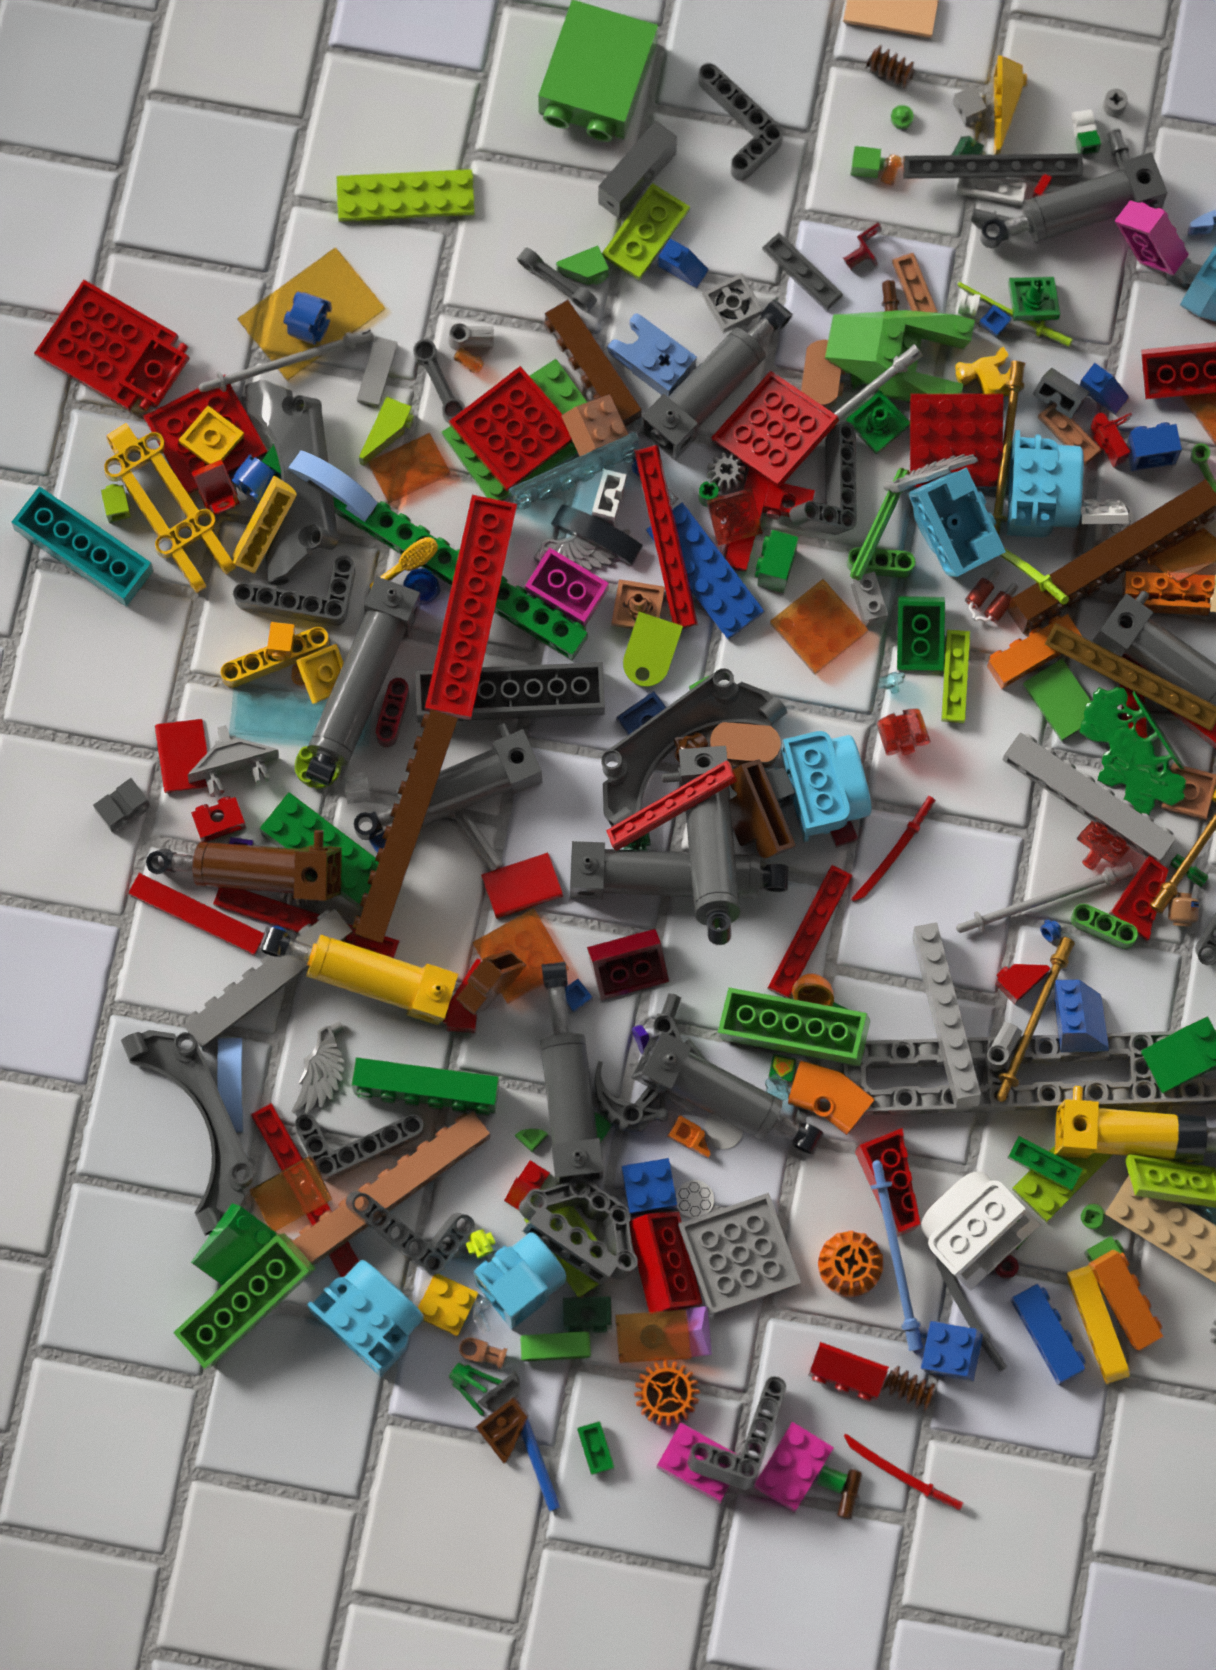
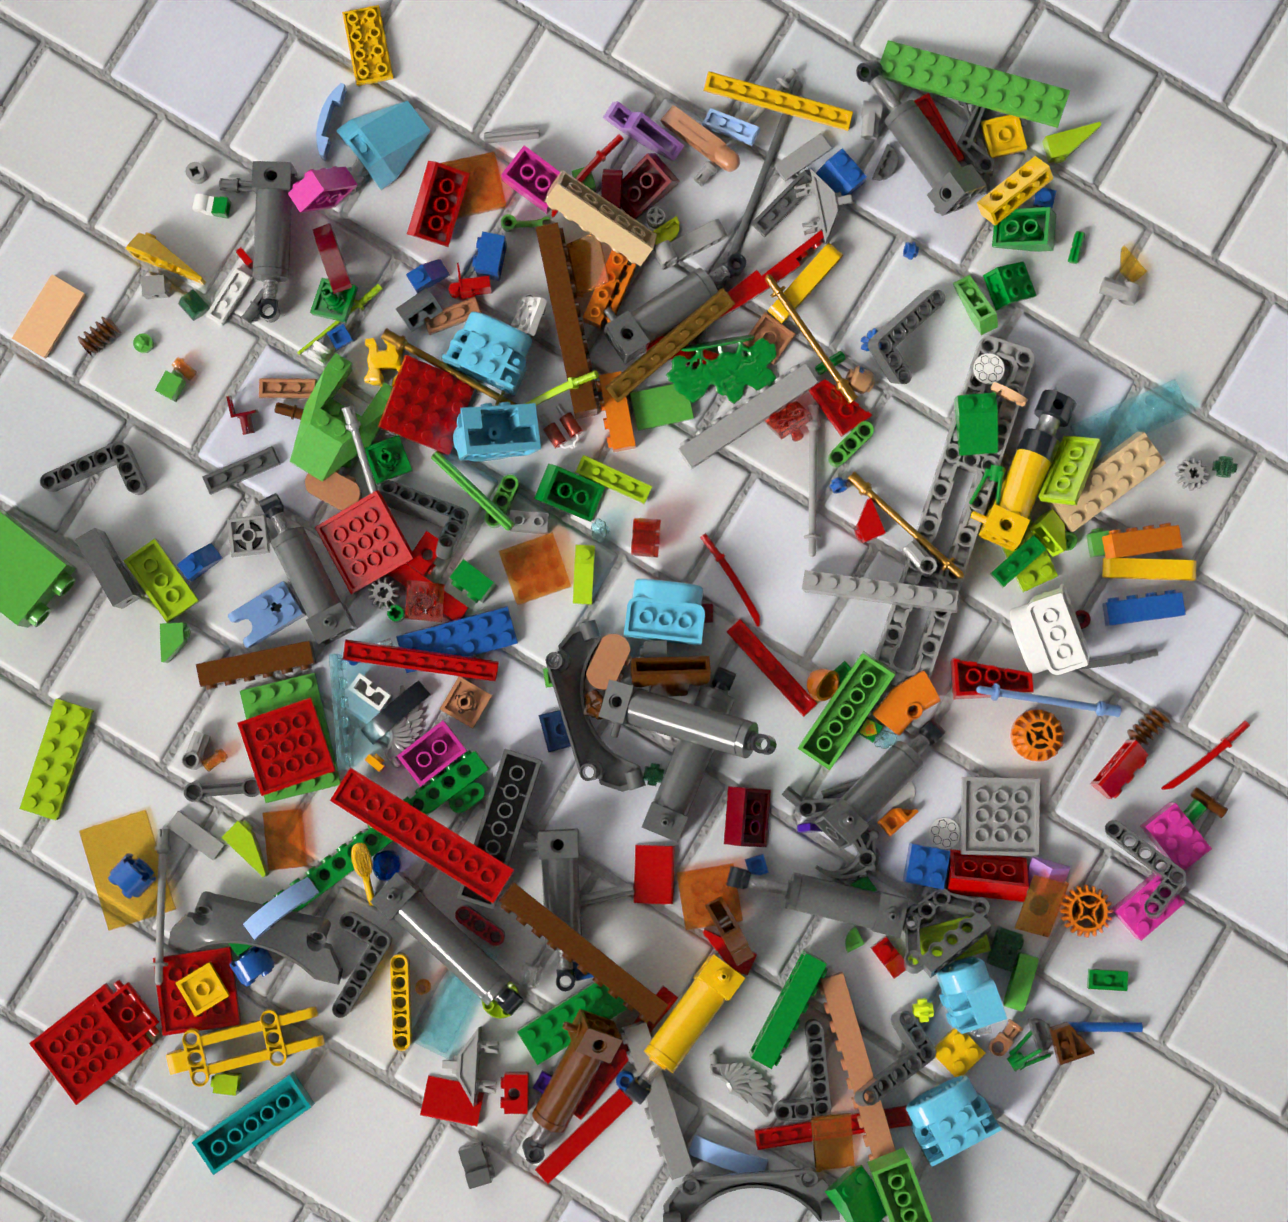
camera: 70 degrees left, 10 degrees up
(216, 487) = (246, 1000): red piece -> none
(263, 525) = (292, 974): yellow brick -> none
(281, 640) = (393, 995): light orange brick -> none
(320, 672) = (428, 971): yellow tile -> none
(531, 646) = (467, 797): none -> green plate
(533, 532) = (376, 761): none -> light orange plate
(579, 295) = (156, 677): dark grey piece -> none
(594, 424) = (310, 682): nougat brick -> none
(650, 647) = (504, 705): lime tile -> none
(671, 805) = (643, 740): red tile -> none
(835, 681) = (583, 574): none -> lime slope
(929, 473) = (448, 435): light grey animal -> none
(952, 1351) = (1133, 686): blue brick -> none
(992, 166) = (213, 289): dark grey tile -> none
(1079, 277) = (332, 258): none -> dark red slope
(1079, 1017) = (917, 491): blue slope -> none
(1094, 1190) = (1050, 532): none -> lime slope
(1135, 1100) = (996, 475): none -> green plant

